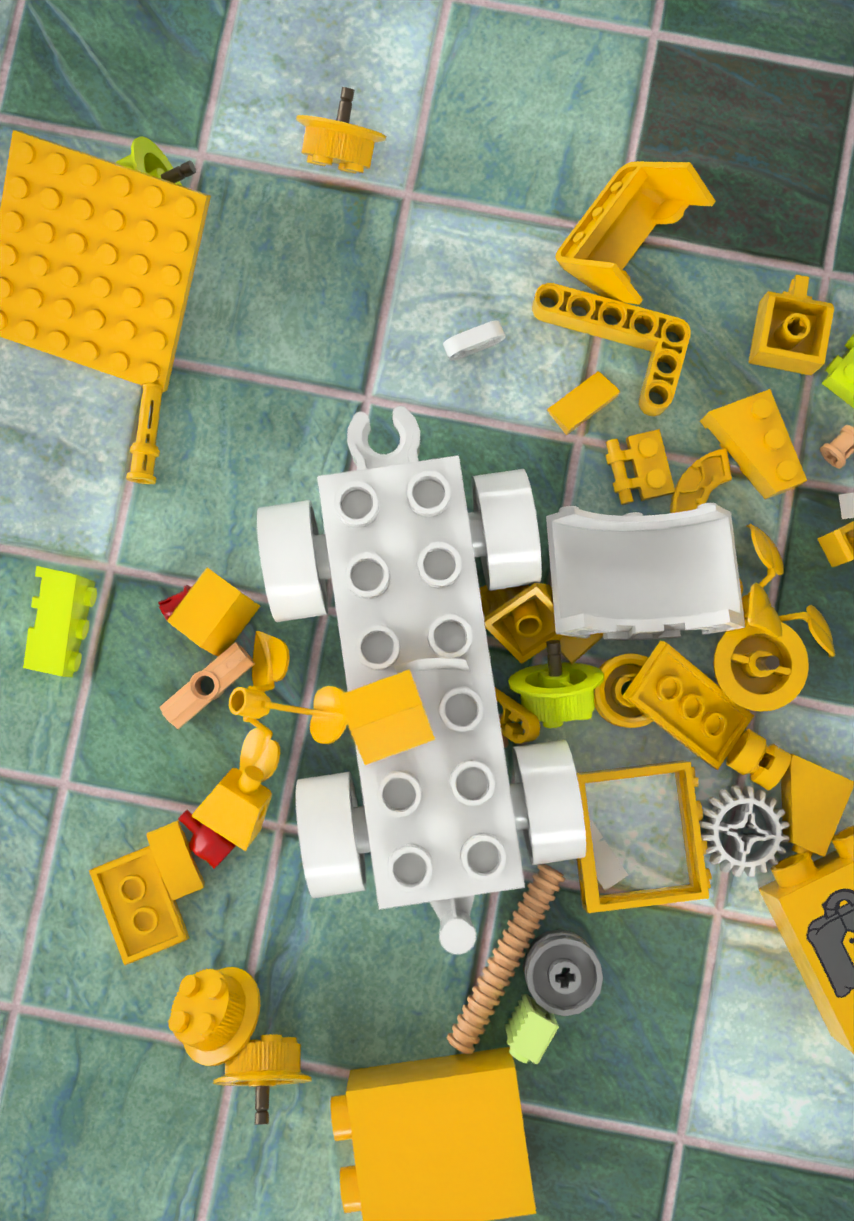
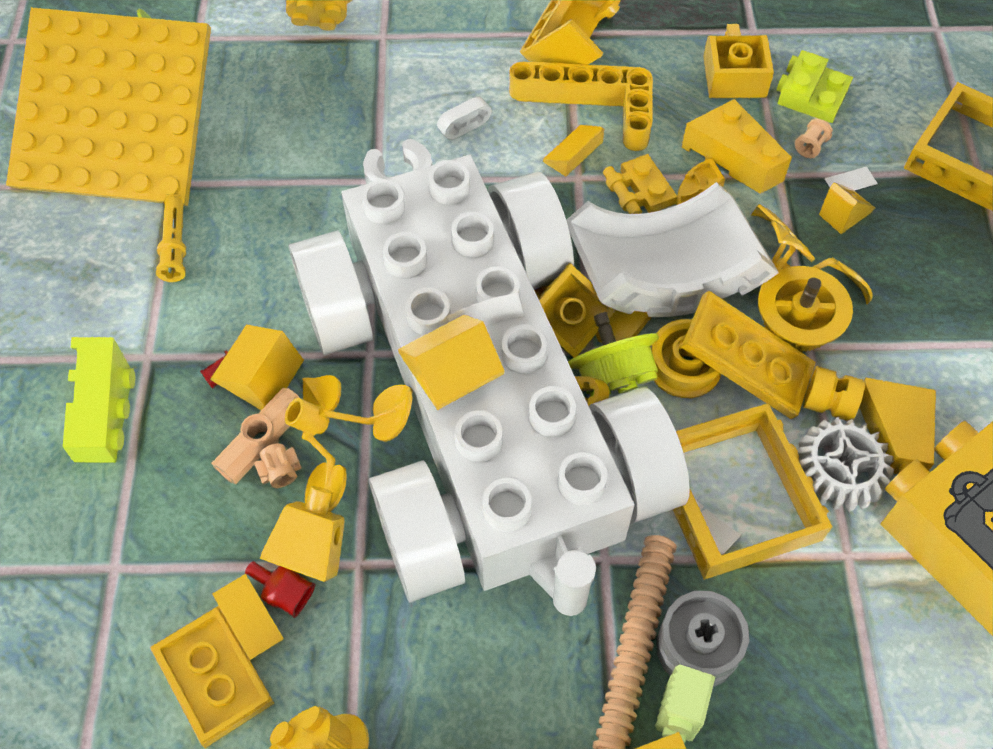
camera: 10 degrees left, 25 degrees down
(219, 722) = (277, 465): none -> light nougat gear

